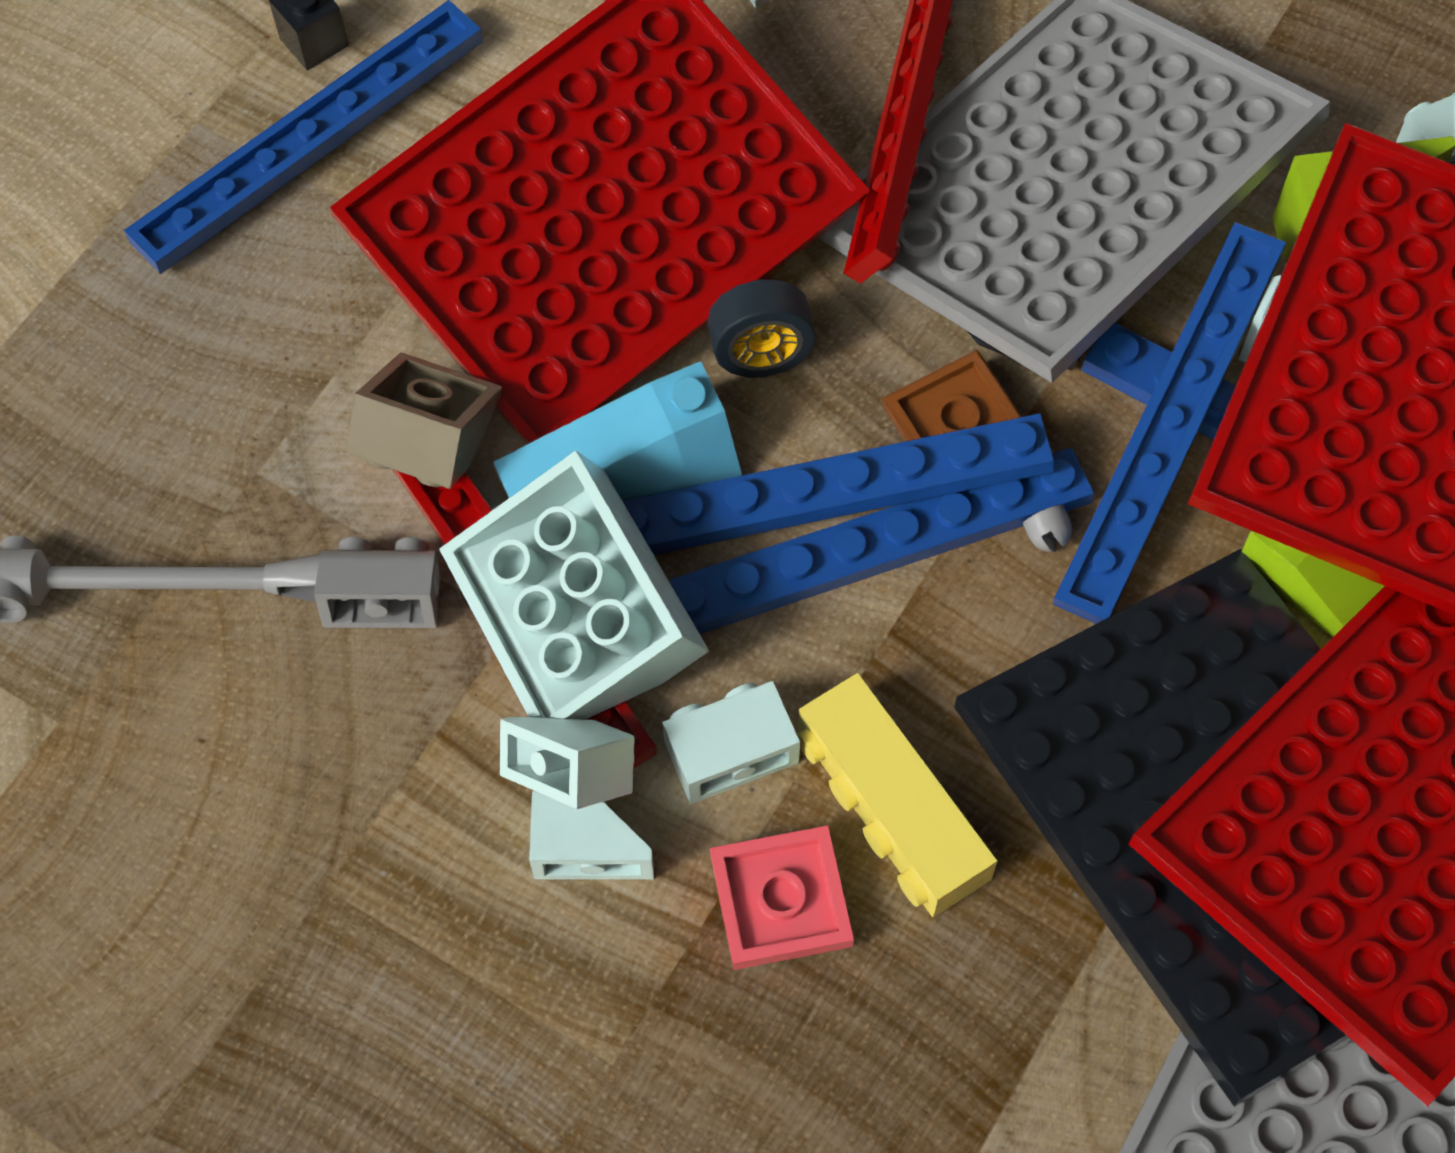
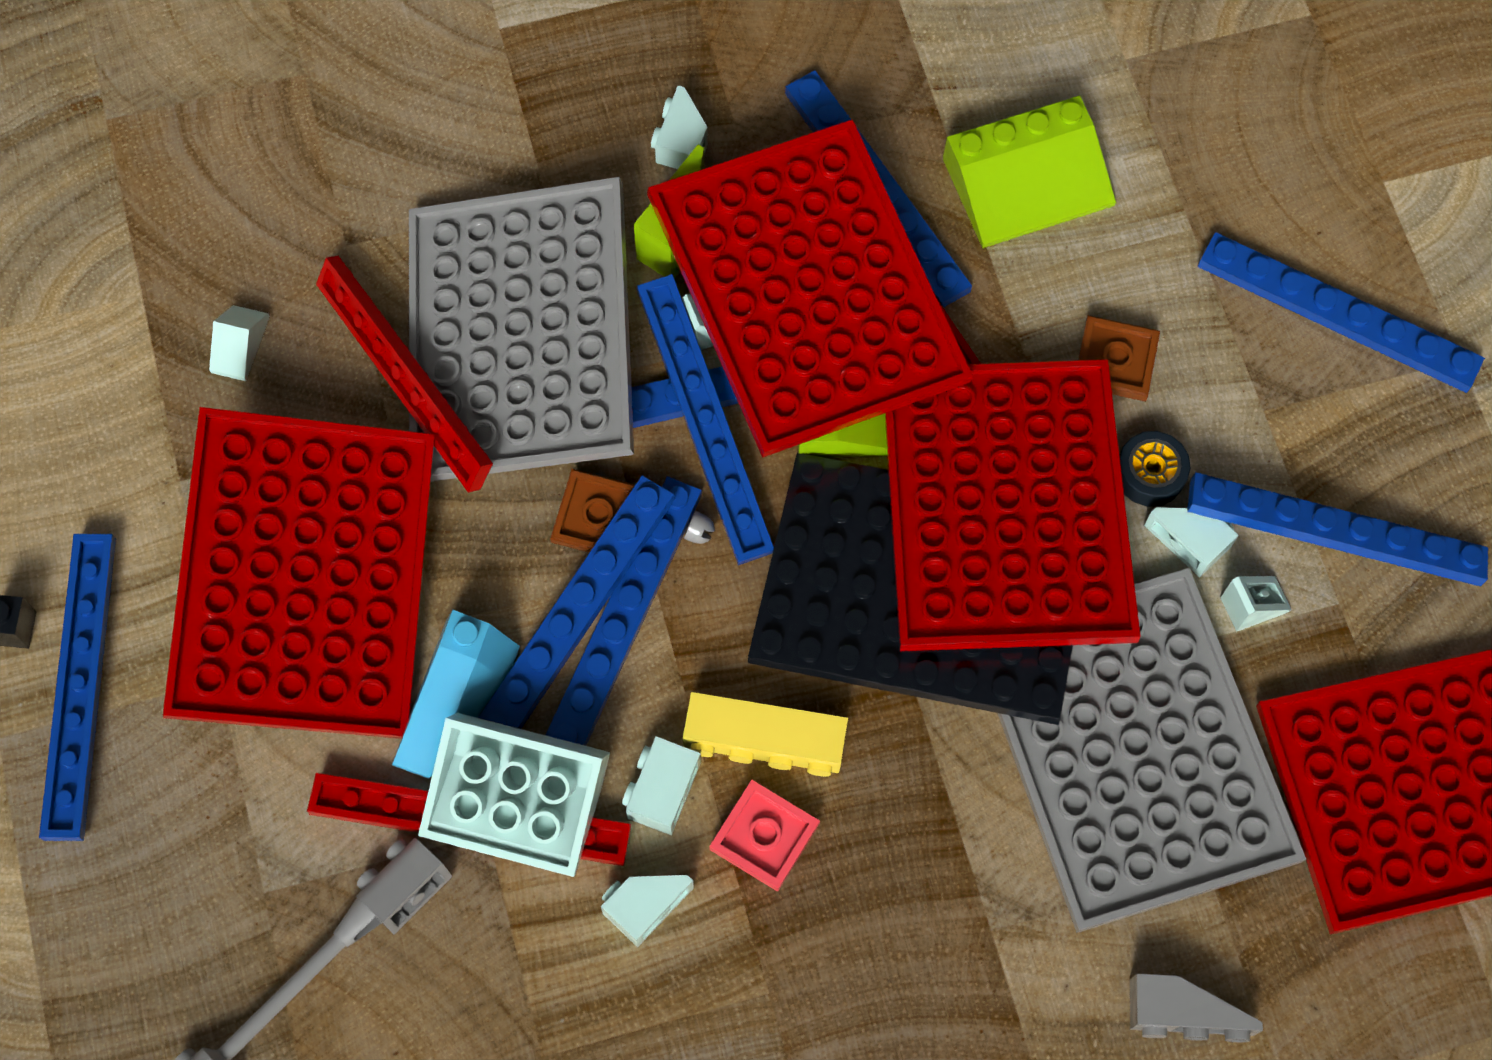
camera: 50 degrees left, 5 degrees up
(421, 420) = (336, 778): dark tan slope -> none
(567, 758) = (602, 874): light aqua slope -> none
(761, 328) = (454, 561): black wheel -> none

